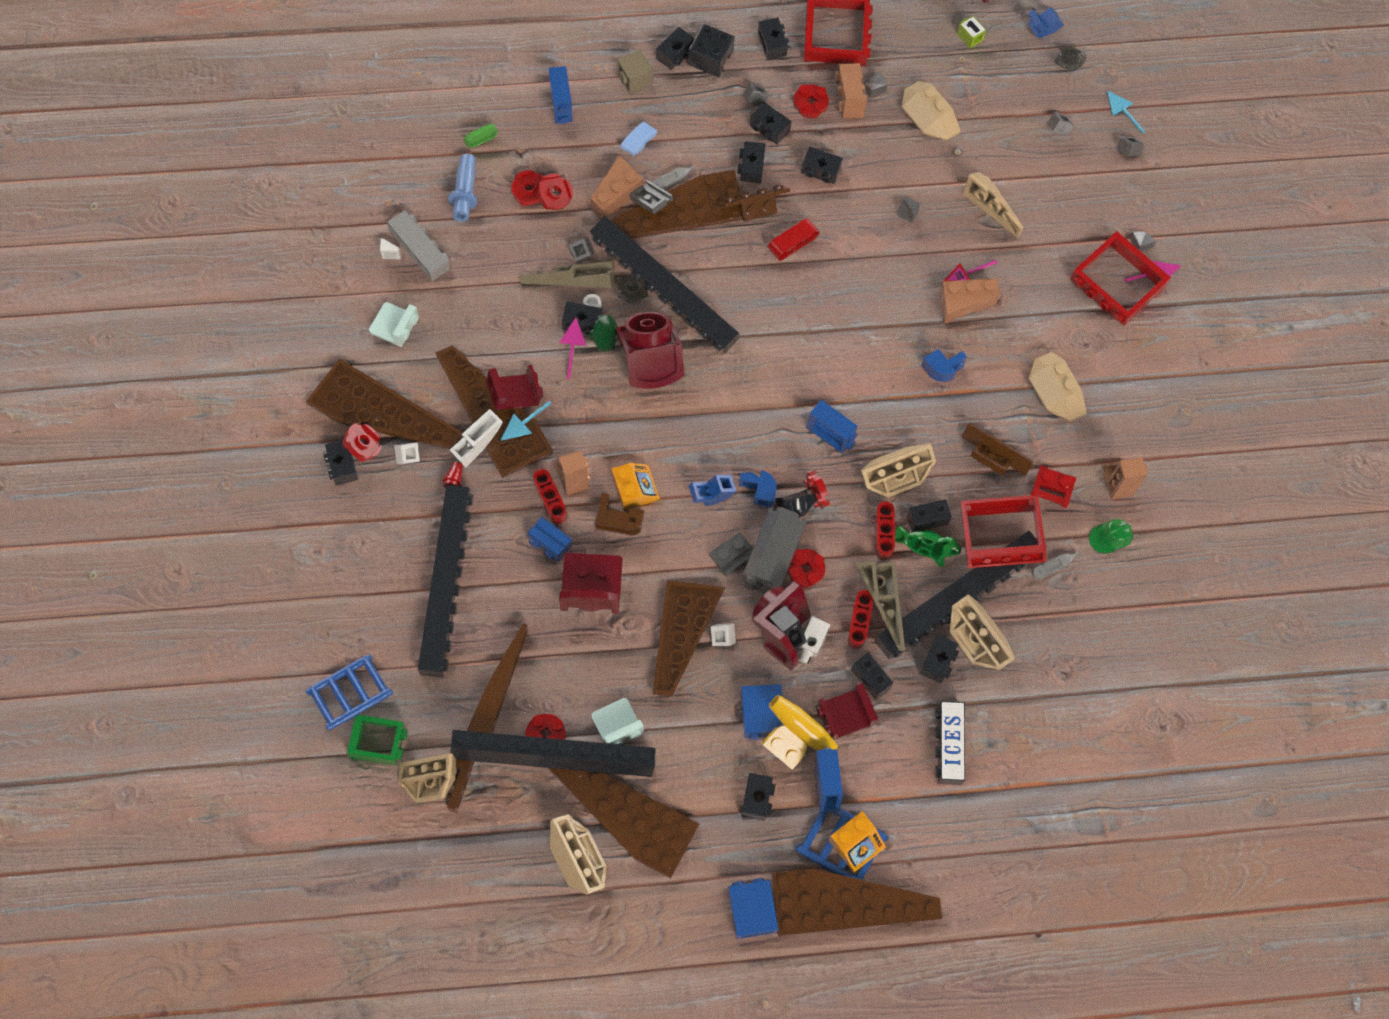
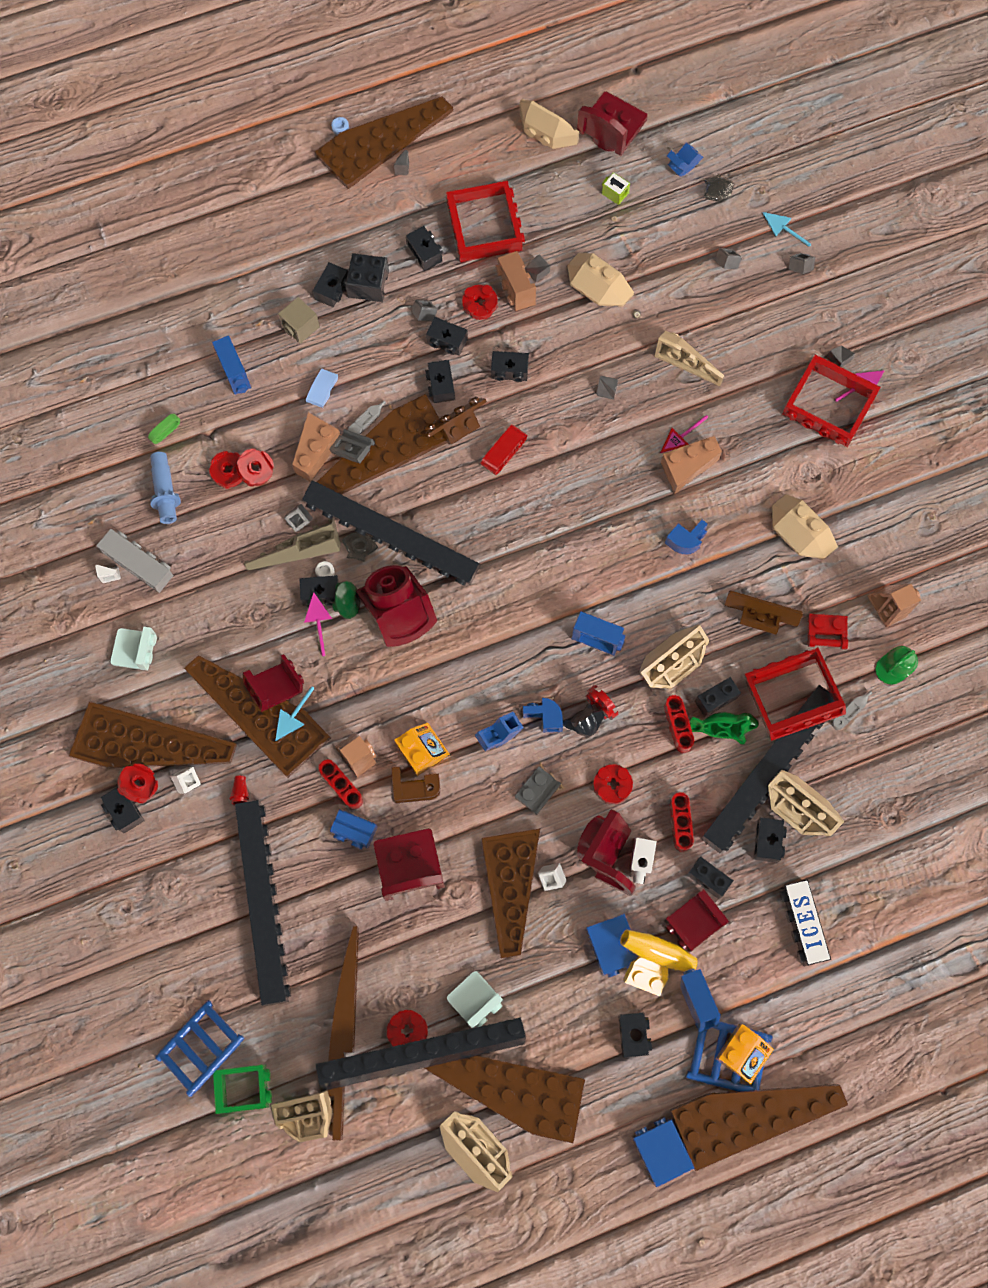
camera: 10 degrees left, 5 degrees up
(476, 438) = (250, 746): white slope -> none
(773, 550) = (578, 779): dark grey brick -> none
(789, 625) = (617, 858): black brick -> none
(883, 587) = (695, 785): dark tan wedge -> none

